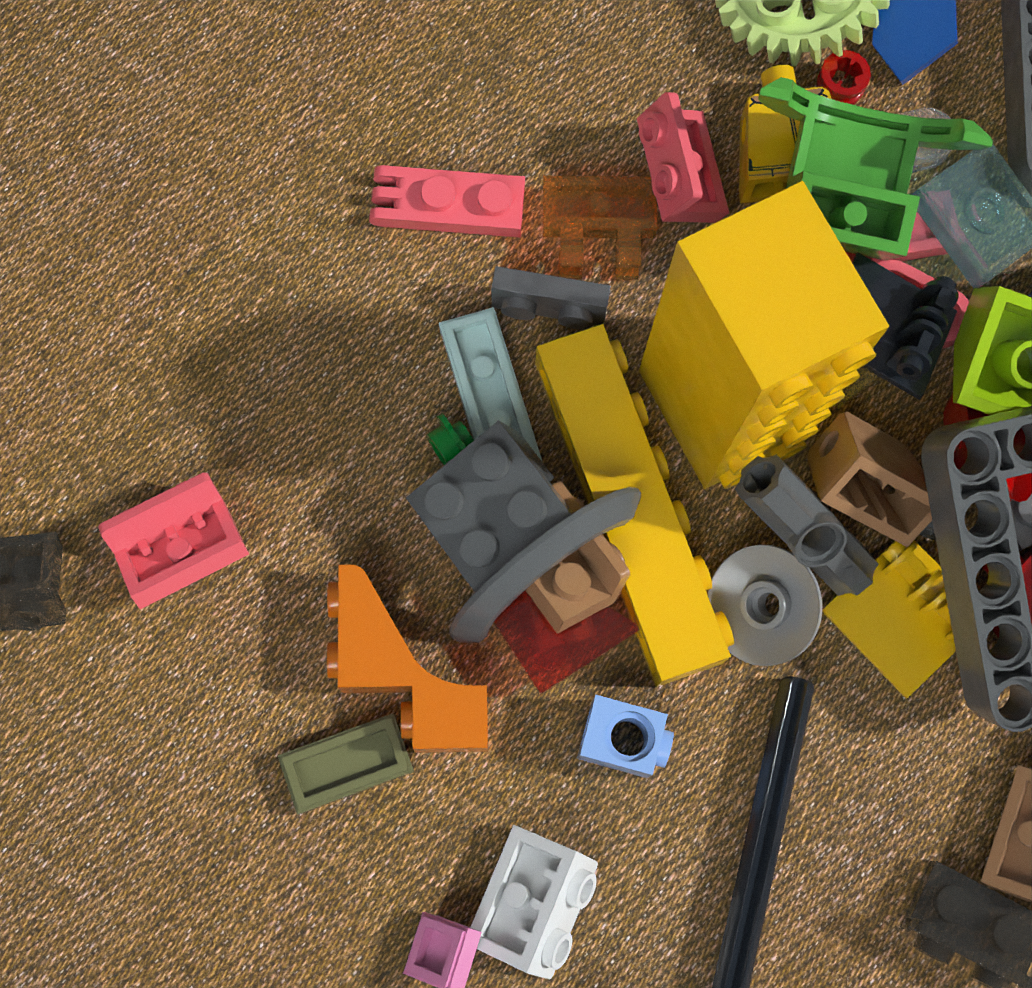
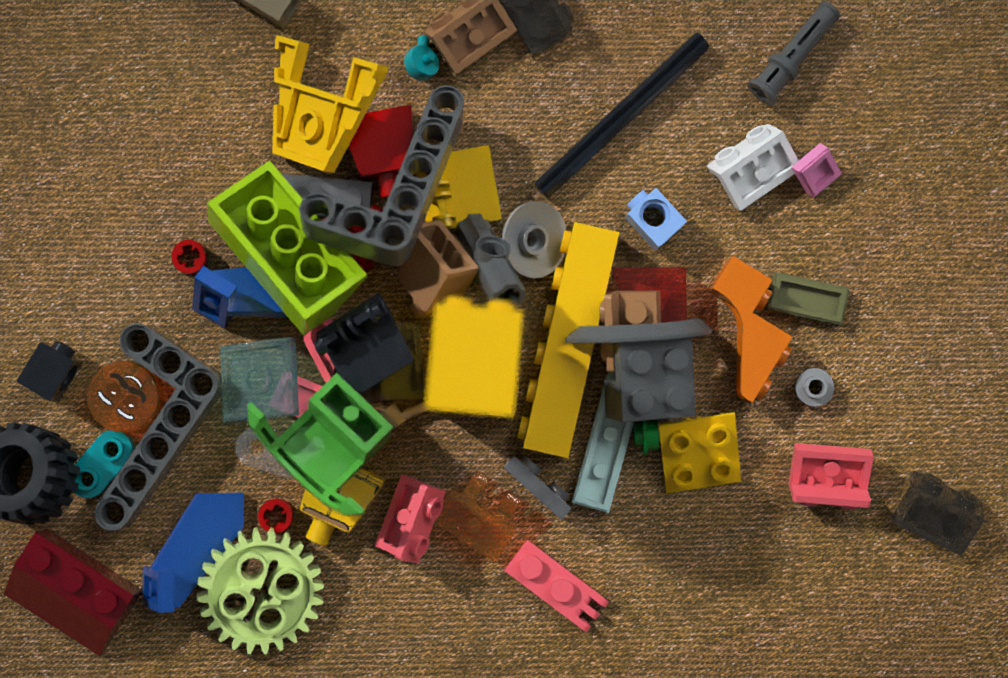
camera: 150 degrees left, 10 degrees up
(279, 660) = (802, 387): none -> light grey plate
(368, 468) = (700, 452): none -> yellow hinge

